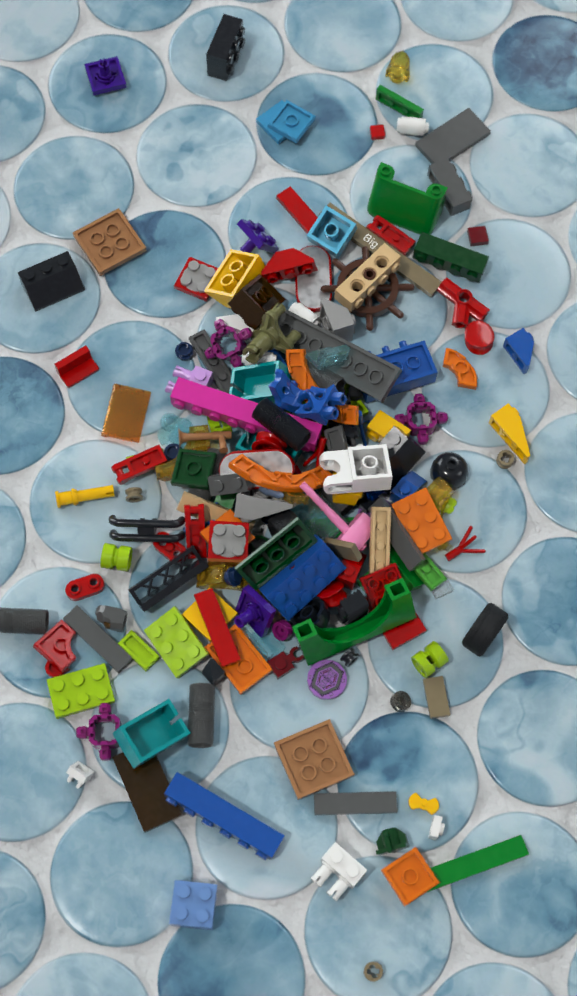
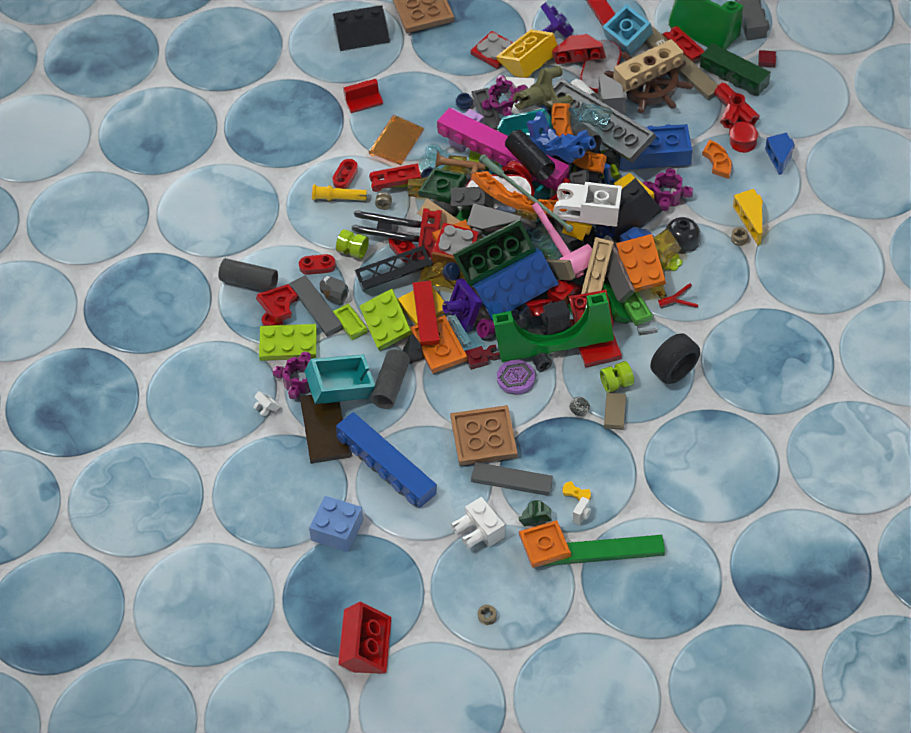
camera: 20 degrees right, 15 degrees down
(84, 470) = (345, 173): none -> red plate
(255, 301) = (532, 61): dark brown slope -> none
(255, 450) = (497, 170): none -> sand green piece

